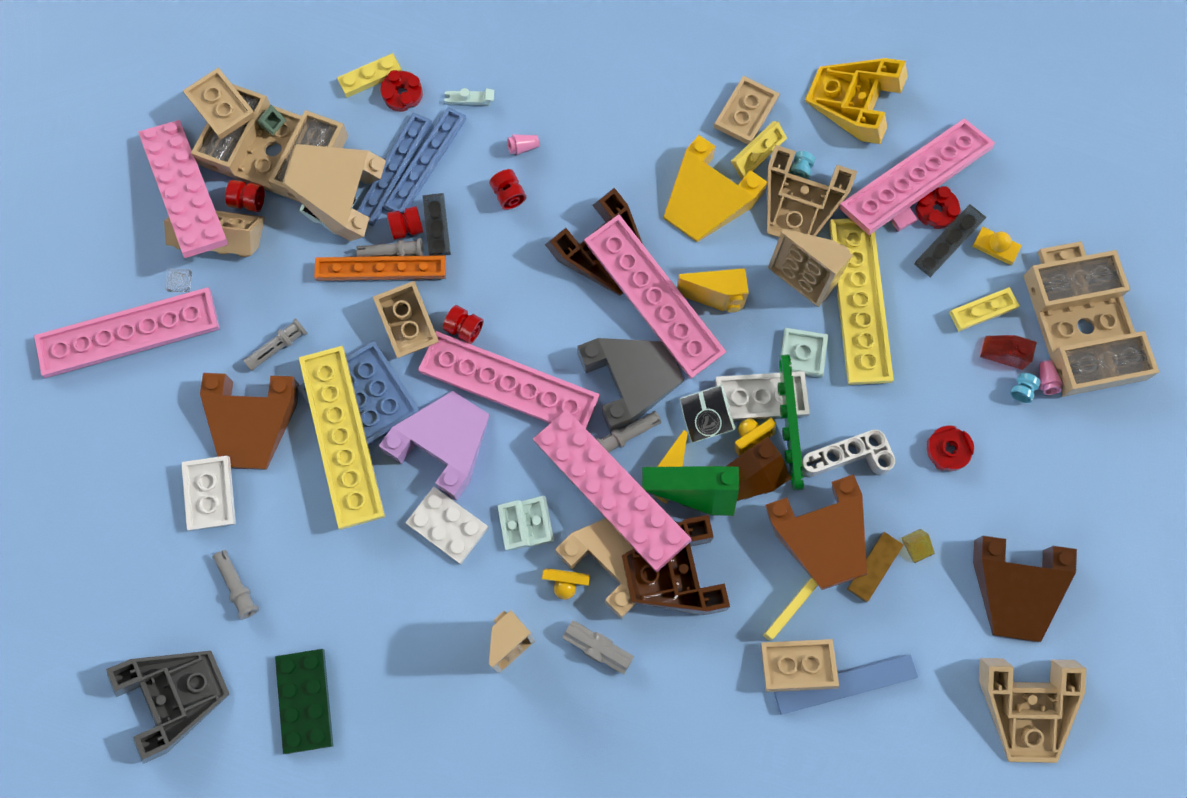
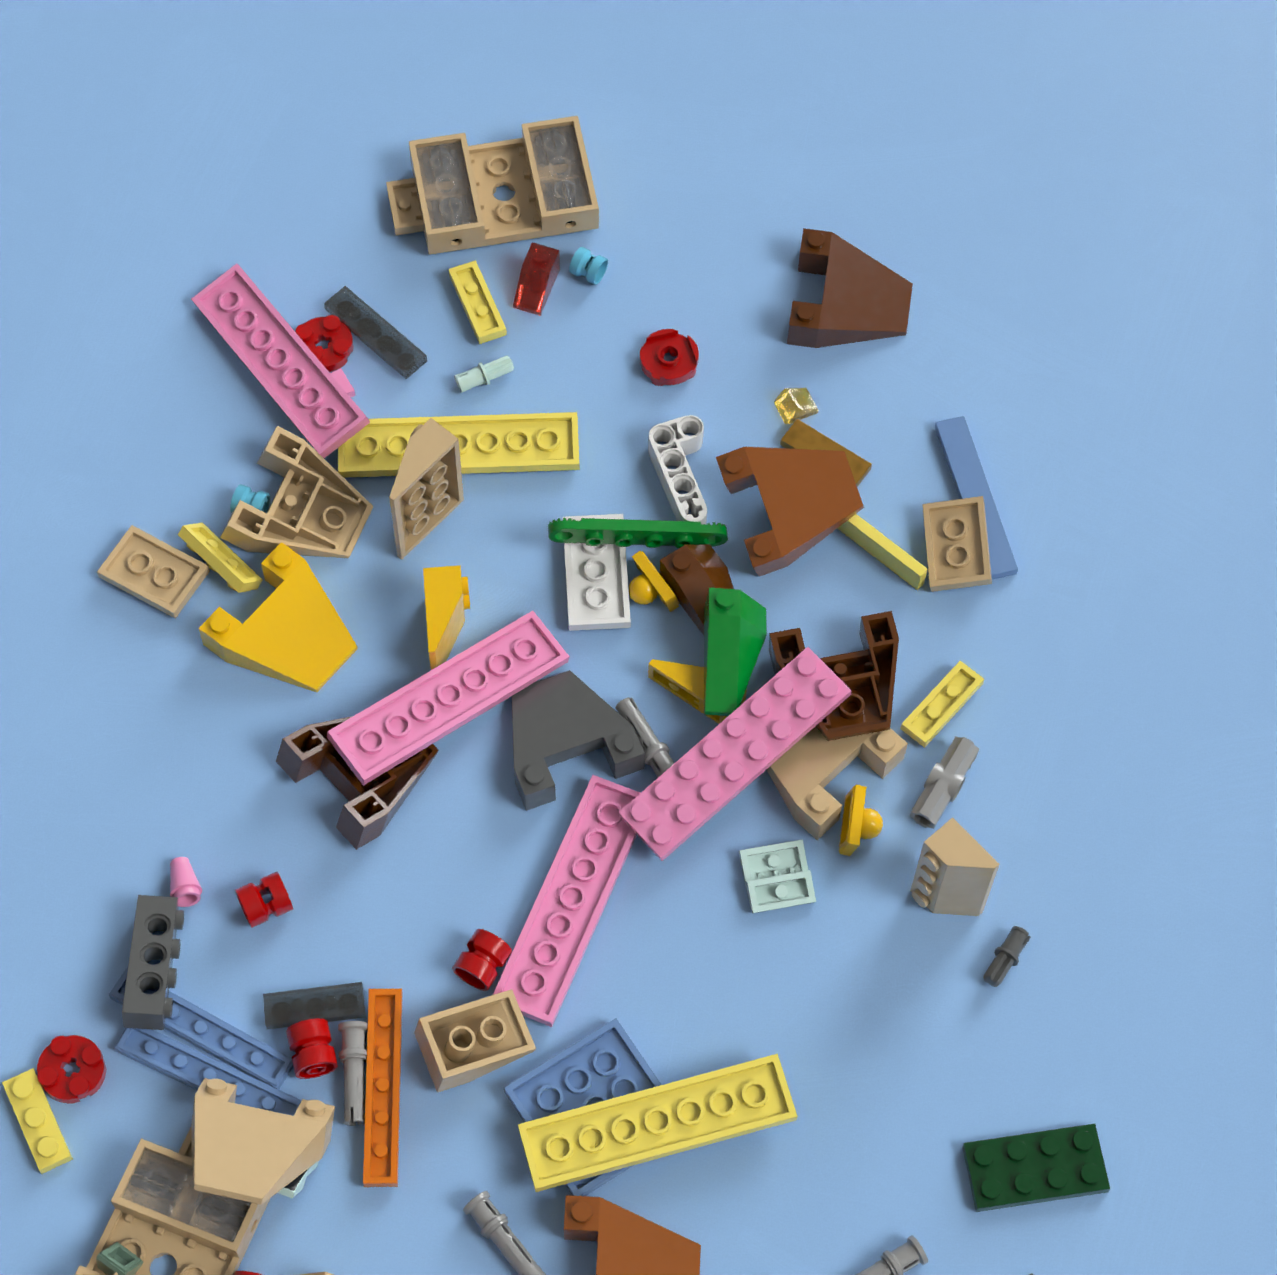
camera: 90 degrees left, 10 degrees down
(447, 431) = (645, 980): lavender wedge -> none
(447, 525) = (781, 982): white plate -> none
(460, 687) = (1006, 956): none -> dark grey axle
(467, 97) = (93, 962): light aqua piece -> none
(472, 118) = (152, 915): none -> dark grey brick
(663, 648) = (942, 704): none -> light yellow plate
(707, 413) = (623, 636): black slope -> none
(805, 350) = (527, 519): light aqua tile -> none
(850, 91) = (136, 442): yellow wedge -> none
(922, 315) = (483, 373): none -> light aqua axle
(997, 245) = (384, 279): yellow tile -> none
(1033, 716) = (998, 297): tan wedge -> none
(1049, 378) = (574, 238): bright pink cone -> none

